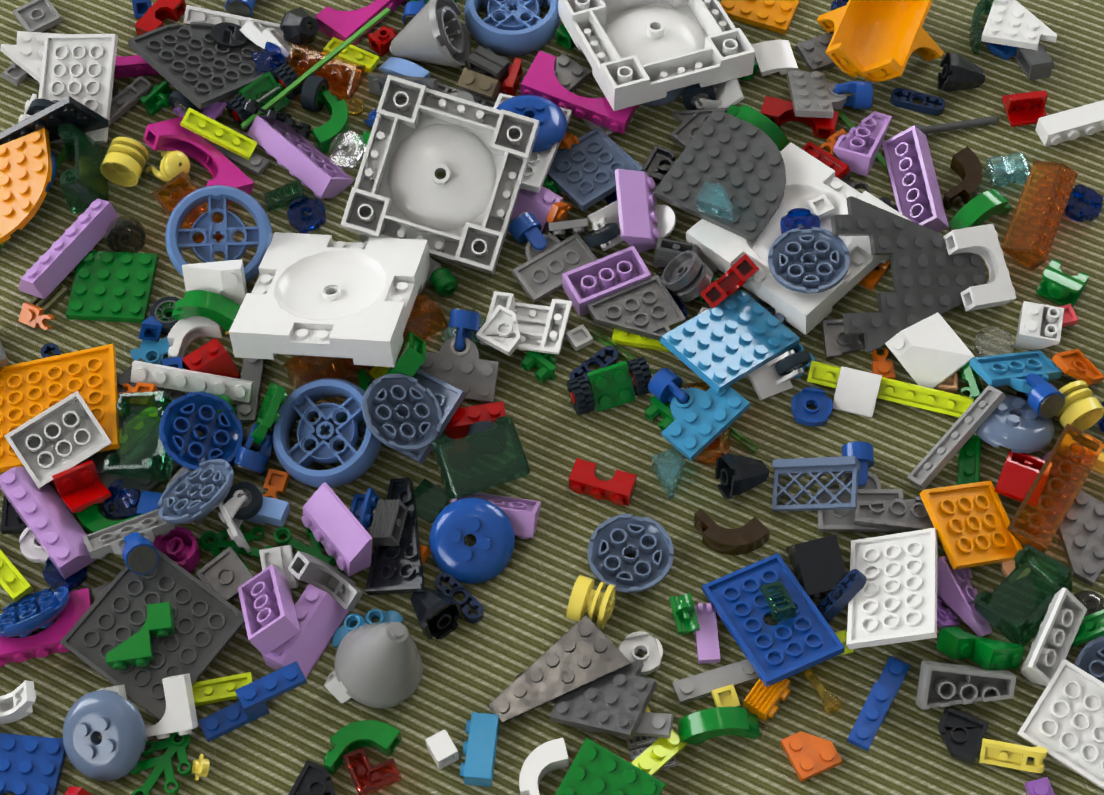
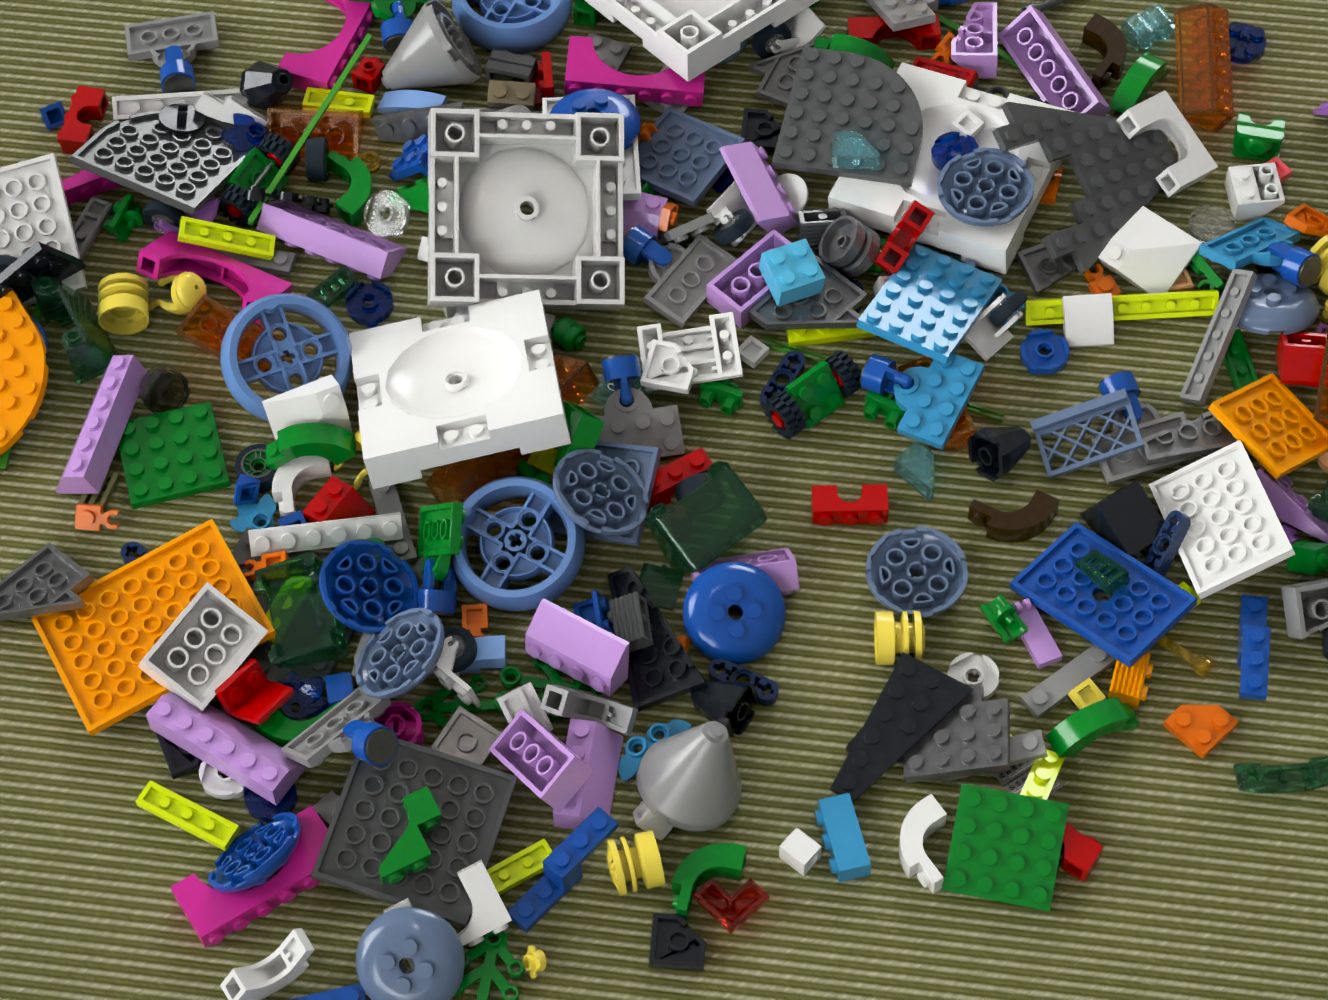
camera: 20 degrees left, 0 degrees up
(304, 715) = (635, 862): none -> light yellow wheel
(629, 283) = (791, 272): none -> medium azure brick

